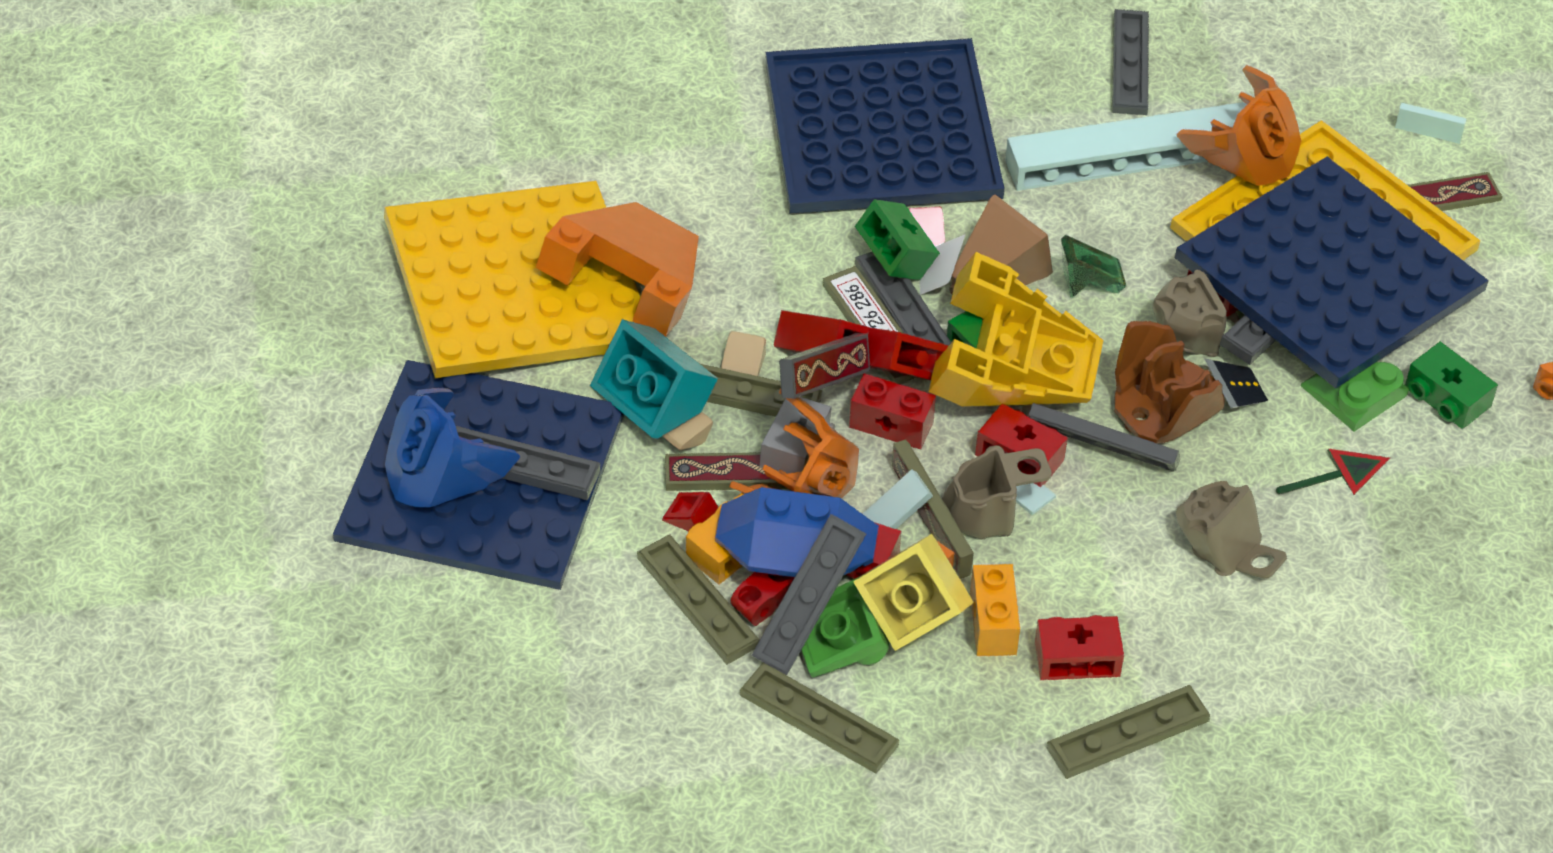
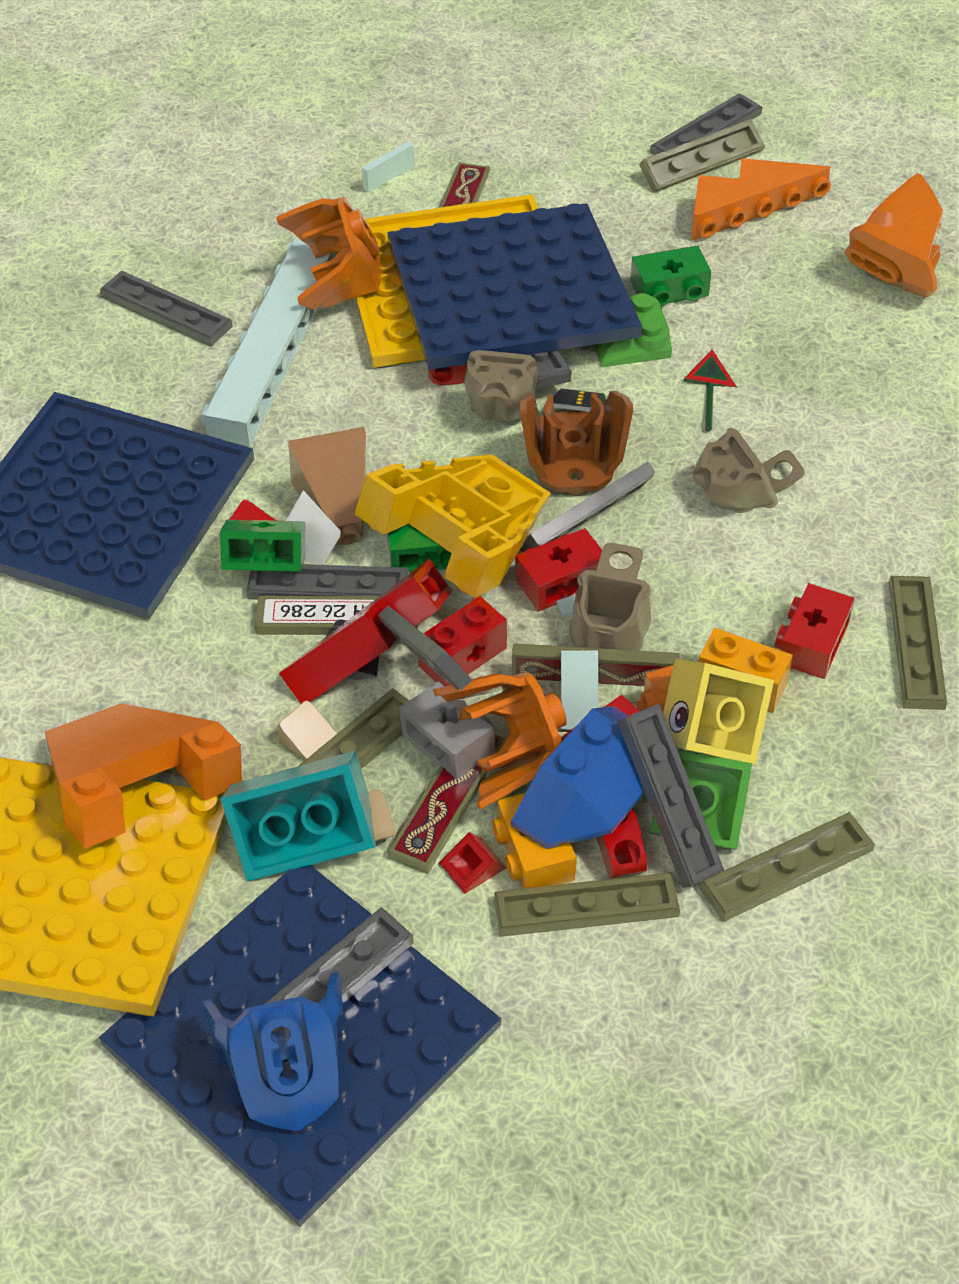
camera: 60 degrees left, 0 degrees up
(1089, 265) = (388, 436): clear green slope -> none

